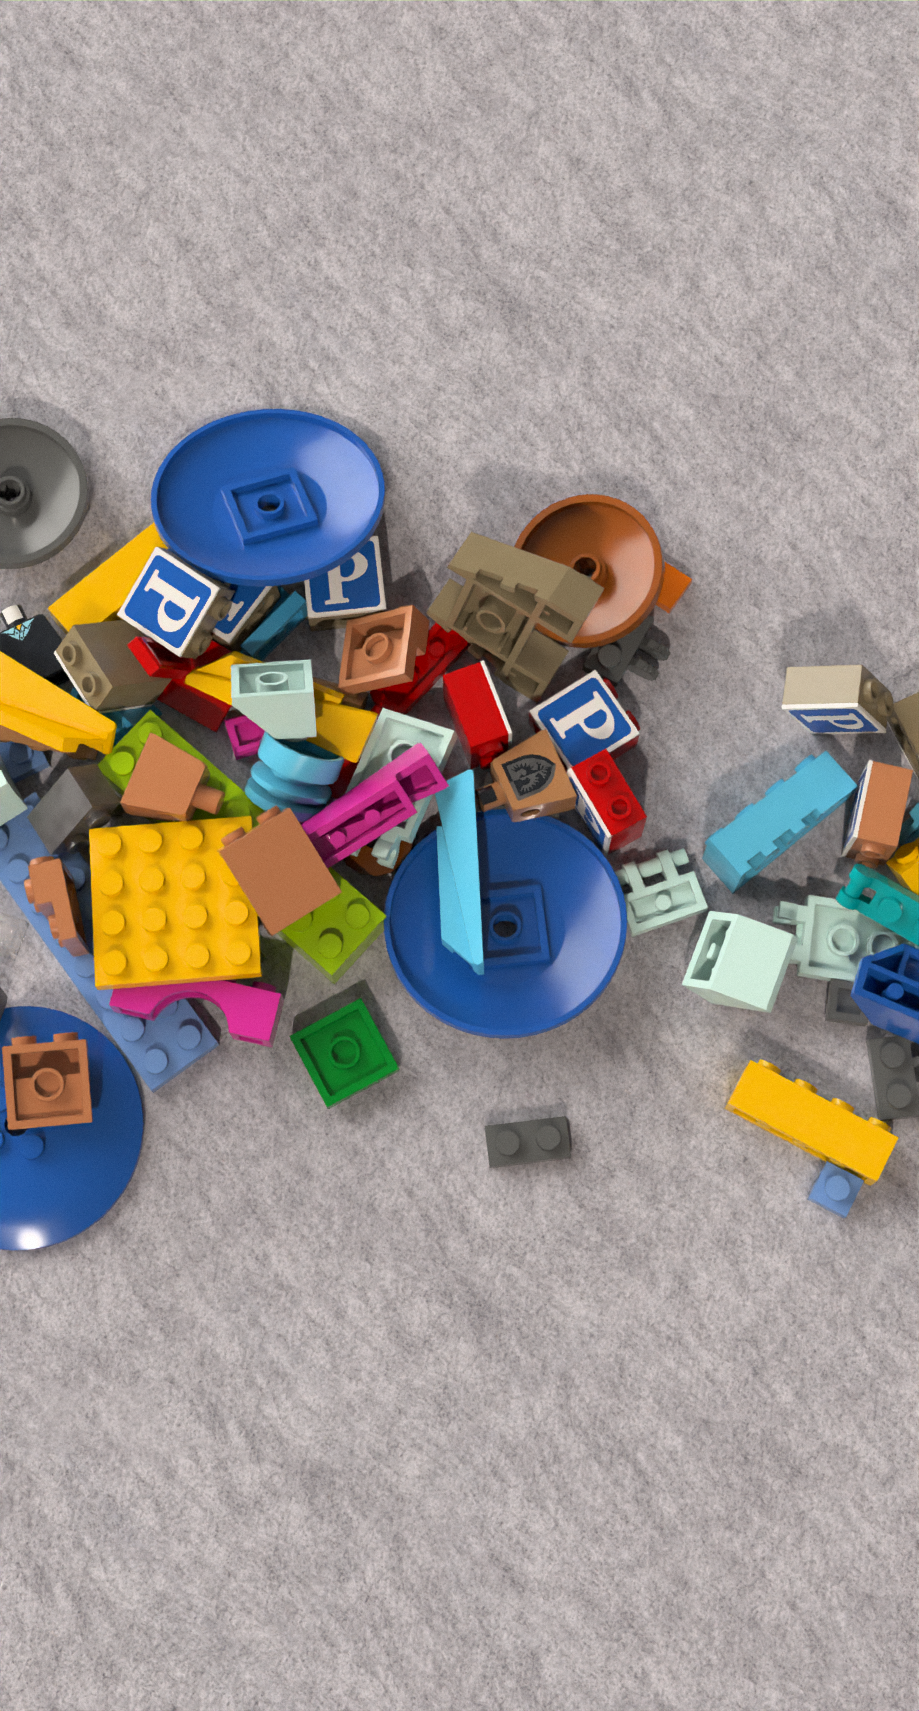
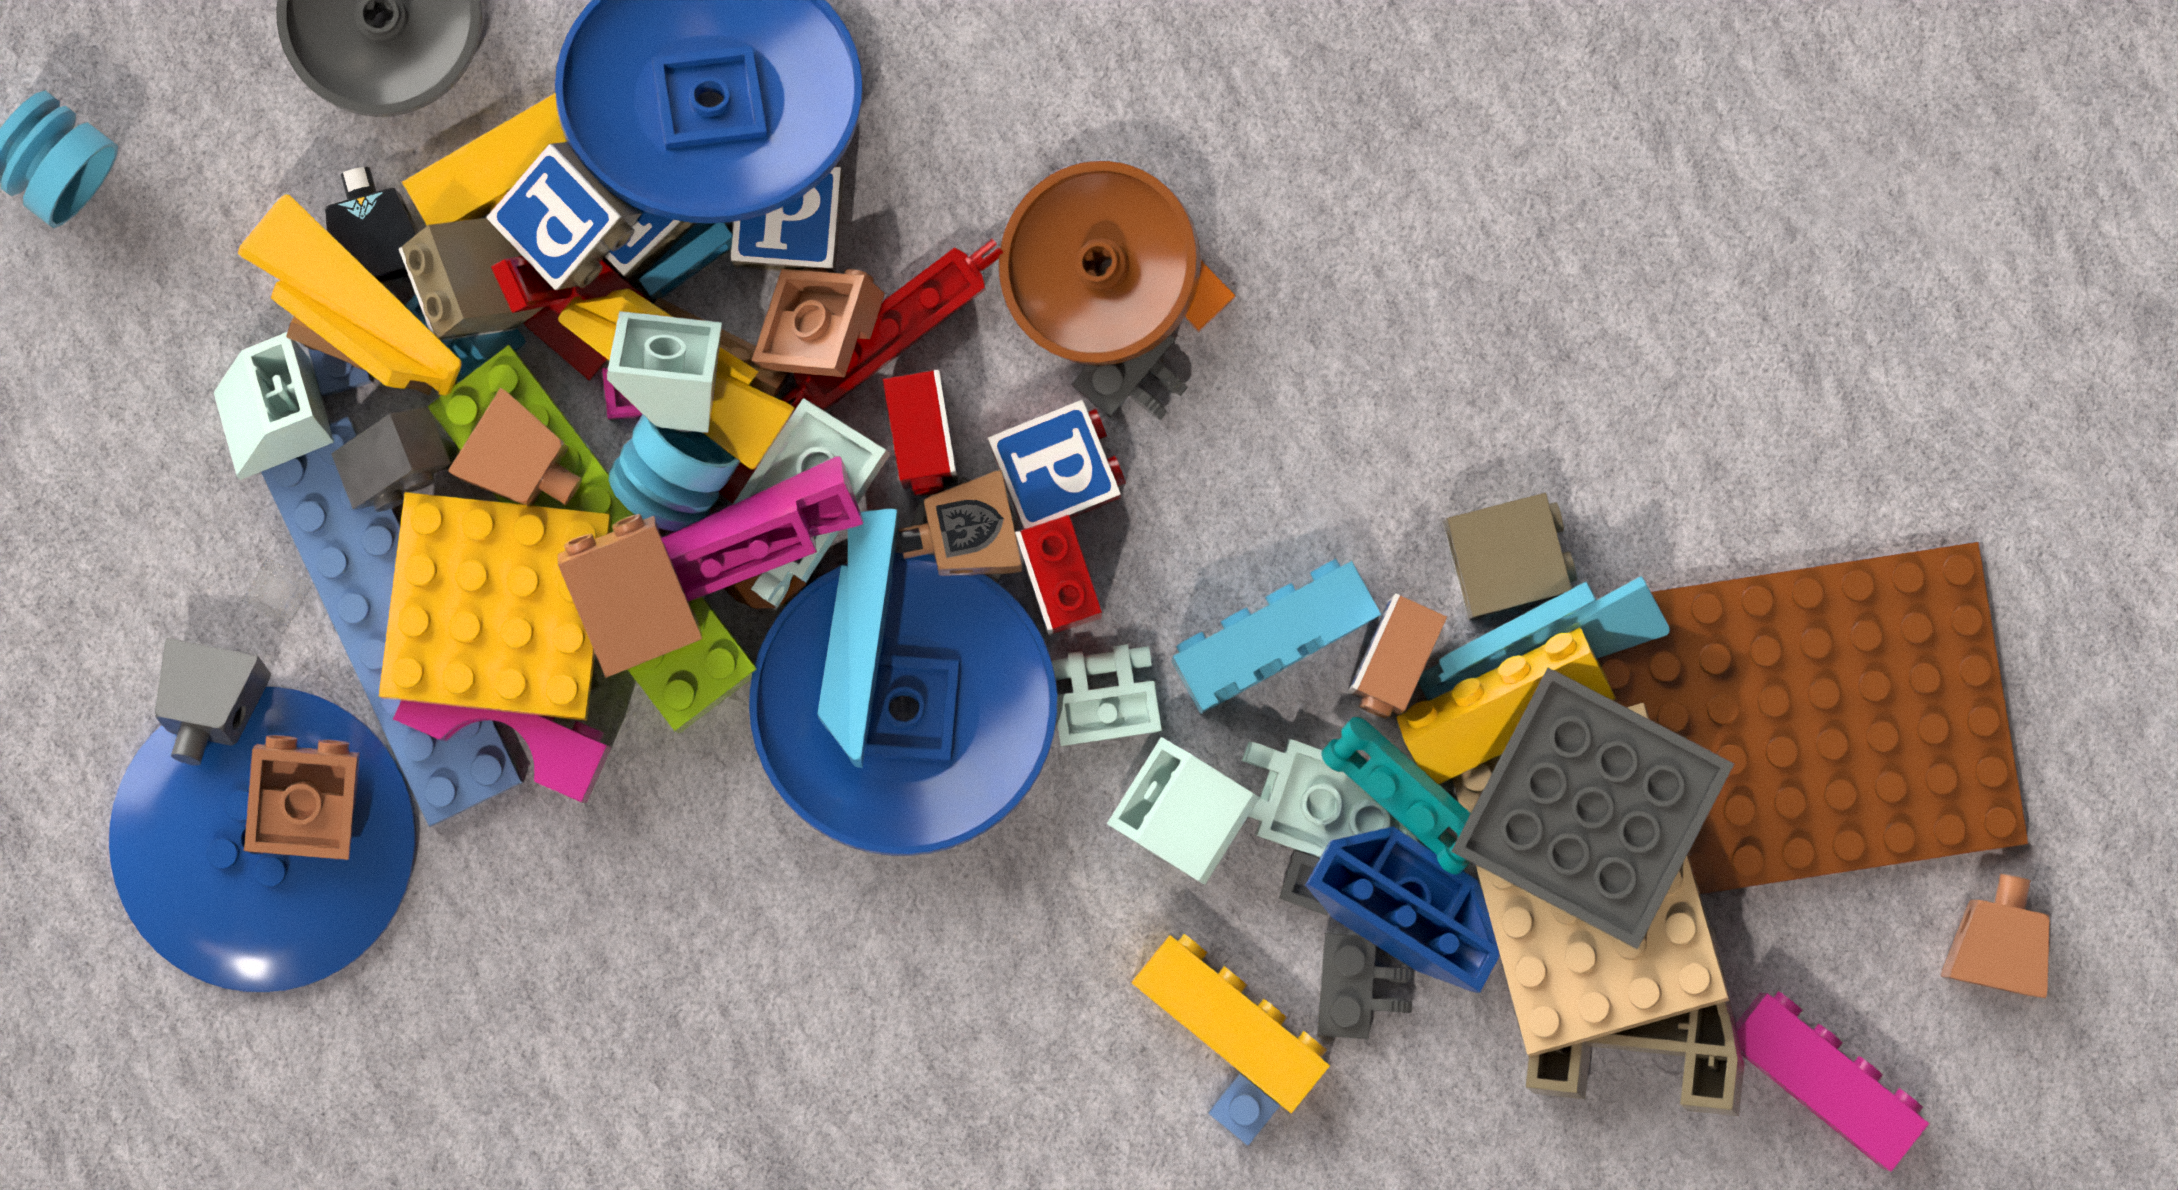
camera: 10 degrees right, 10 degrees up
(55, 895) = (350, 565): nougat plate -> none
(344, 1053) = (674, 826): green plate -> none
(504, 602) = (988, 314): dark tan wedge -> none
(527, 1142) = (879, 978): dark grey plate -> none
(836, 699) = (1377, 501): piece -> none

